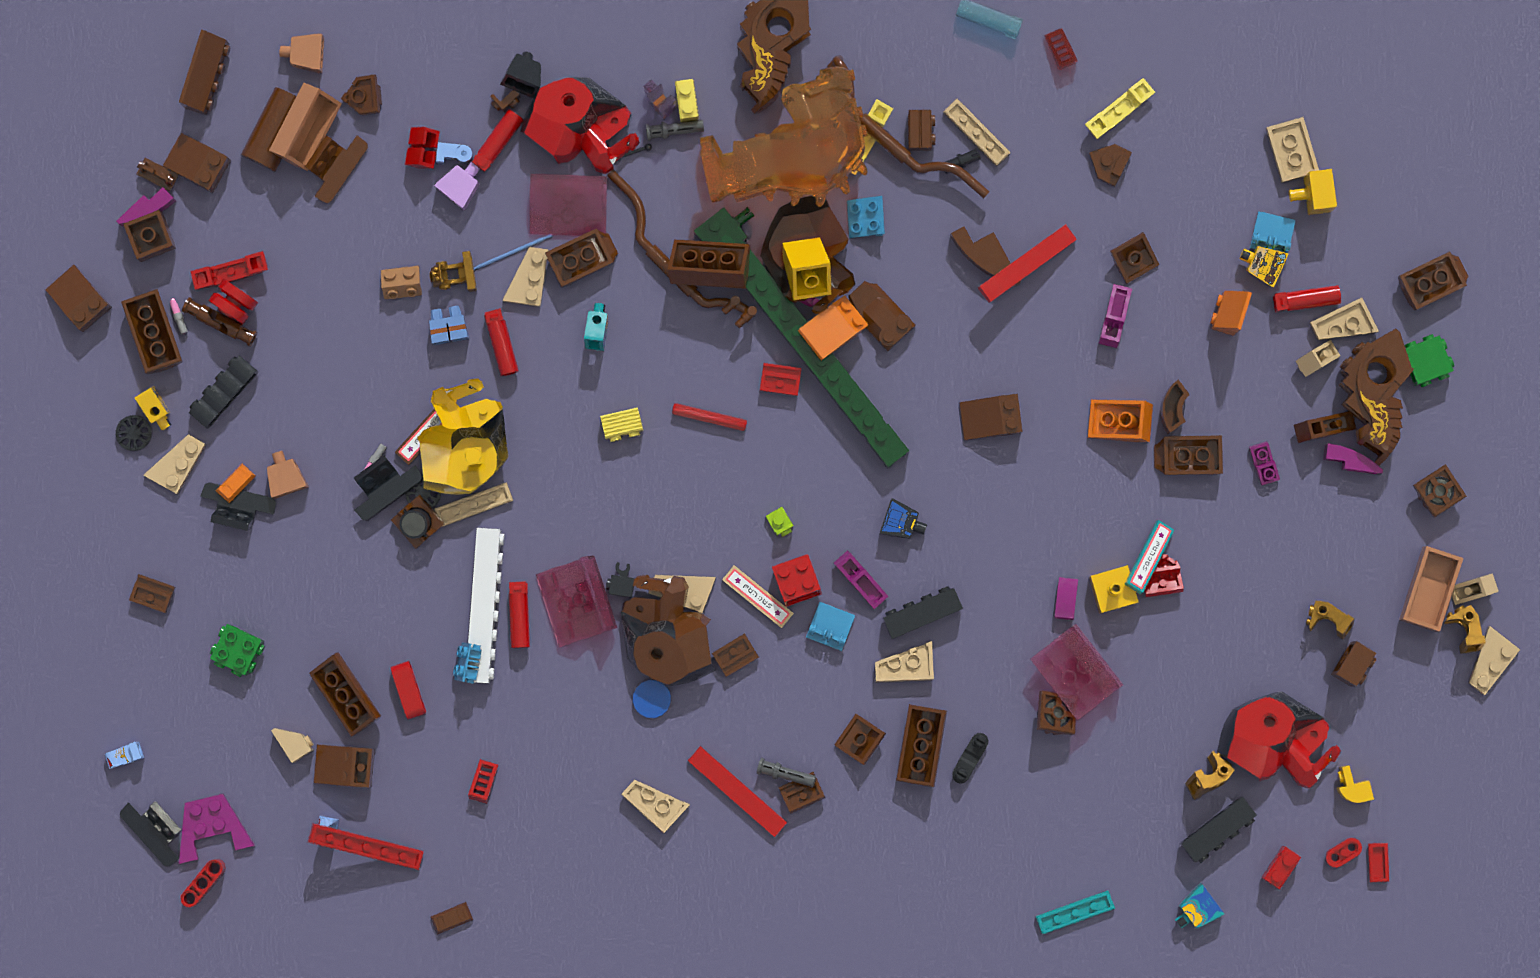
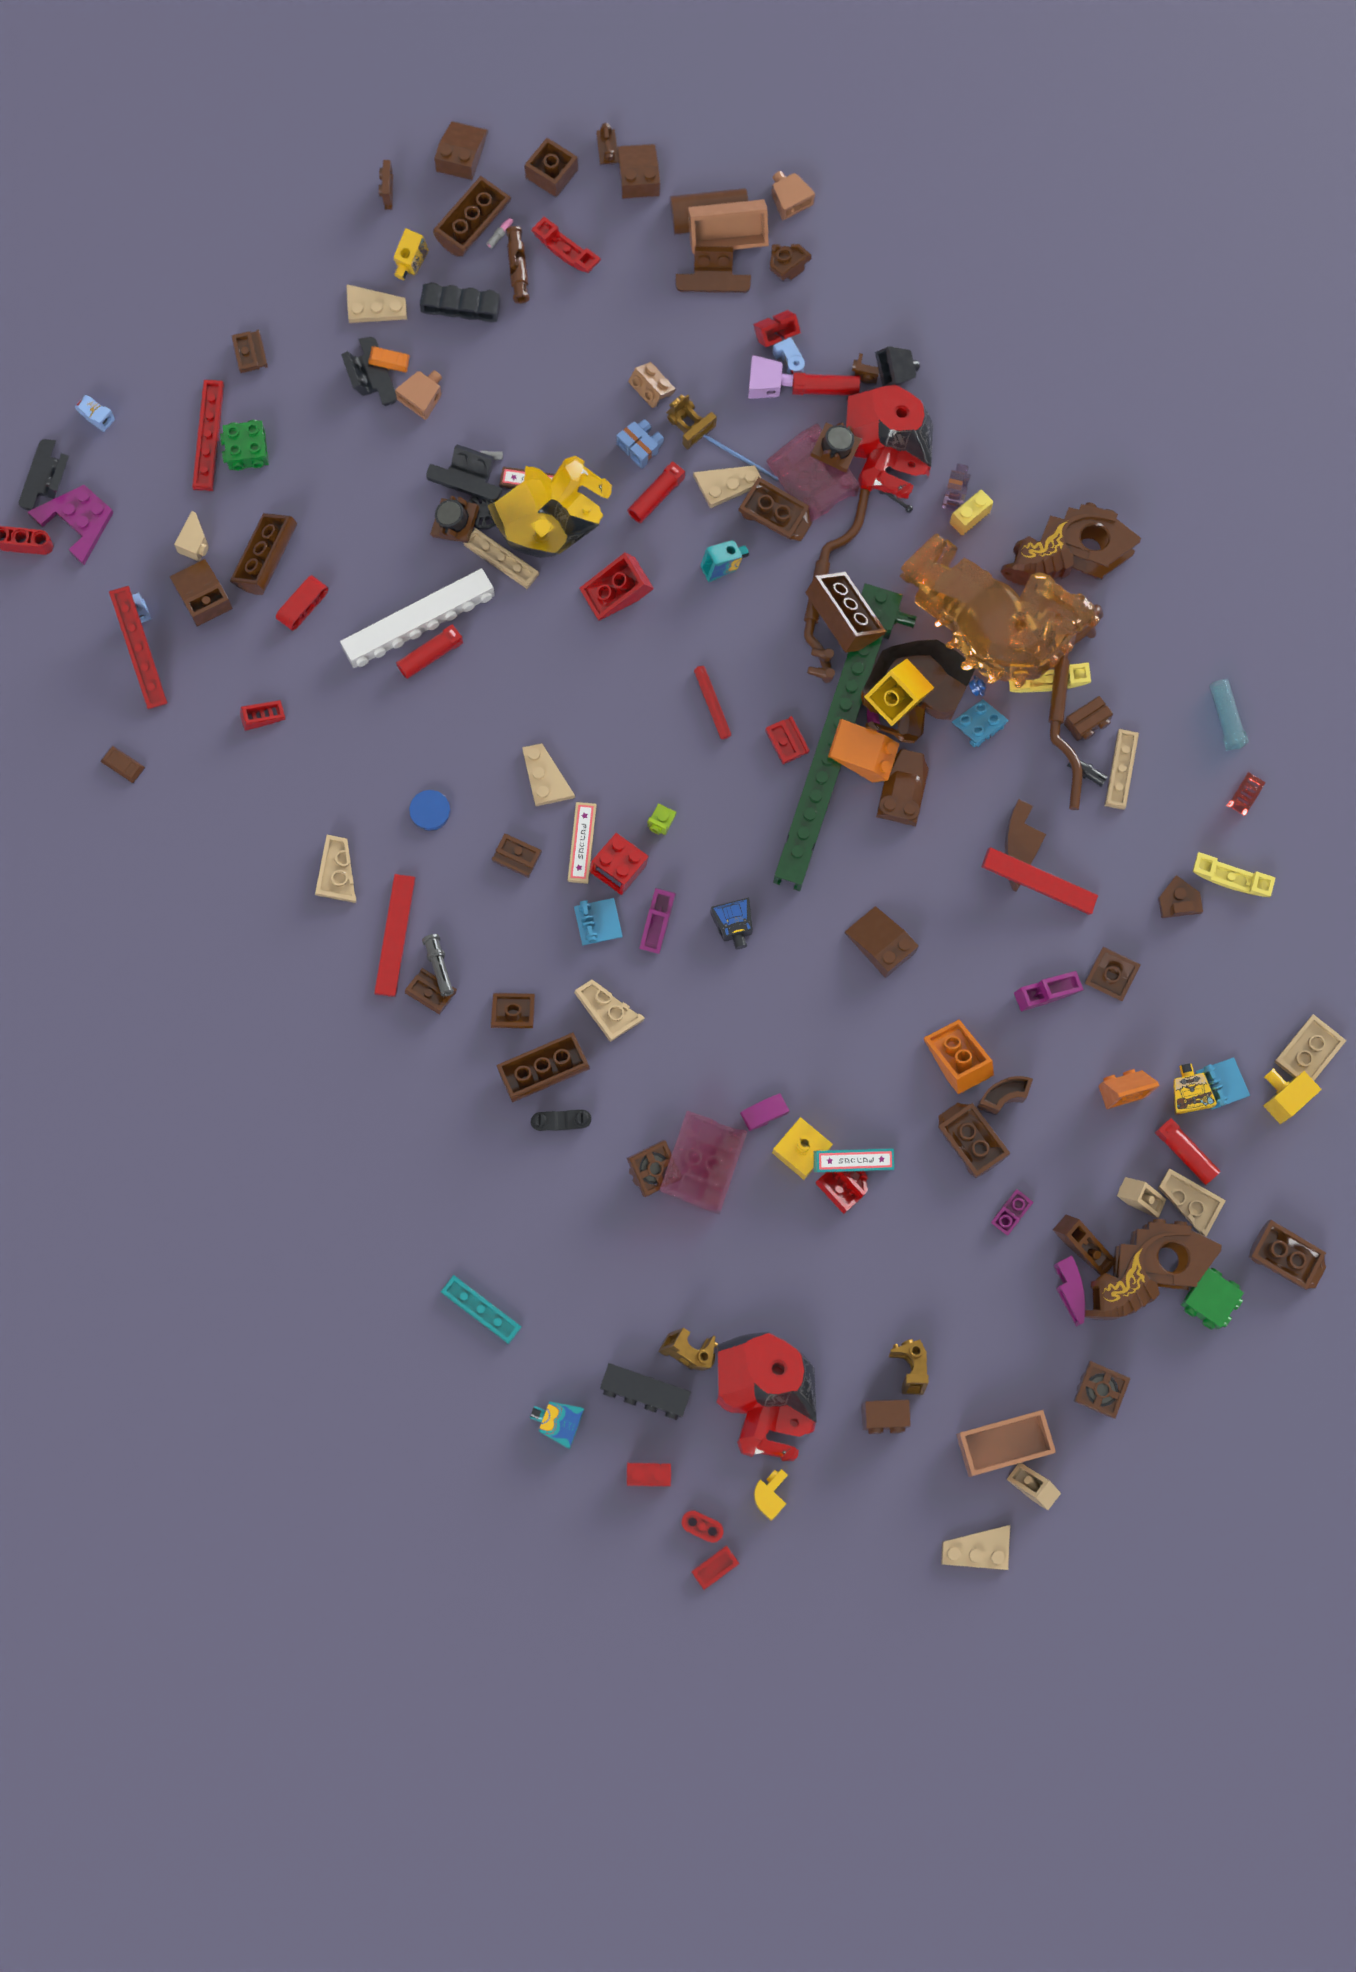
camera: 50 degrees right, 10 degrees down
(79, 388) = (386, 188): none -> reddish brown plate
(133, 433) = (377, 257): black wheel -> none
(144, 206) = (587, 159): magenta slope -> none
(204, 73) = (716, 125): reddish brown slope -> none
(205, 674) = (208, 435): none -> red tile
(233, 301) = (541, 260): red wheel -> none
(460, 670) = (347, 631): dark azure hinge -> none
(561, 429) = (616, 586): none -> red slope
(563, 172) = (837, 445): none -> piece
(576, 601) = (474, 692): clear pink piece -> none
(622, 424) = (655, 633): light yellow brick -> none
(622, 584) = (514, 720): black brick -> none
(664, 638) = (491, 782): reddish brown piece -> none
(665, 130) = (931, 512): dark grey pin -> none
(835, 198) = (977, 686): none -> blue plate
(922, 613) = (664, 991): black brick -> none
(1474, 640) = (986, 1516): pearl gold tile -> none

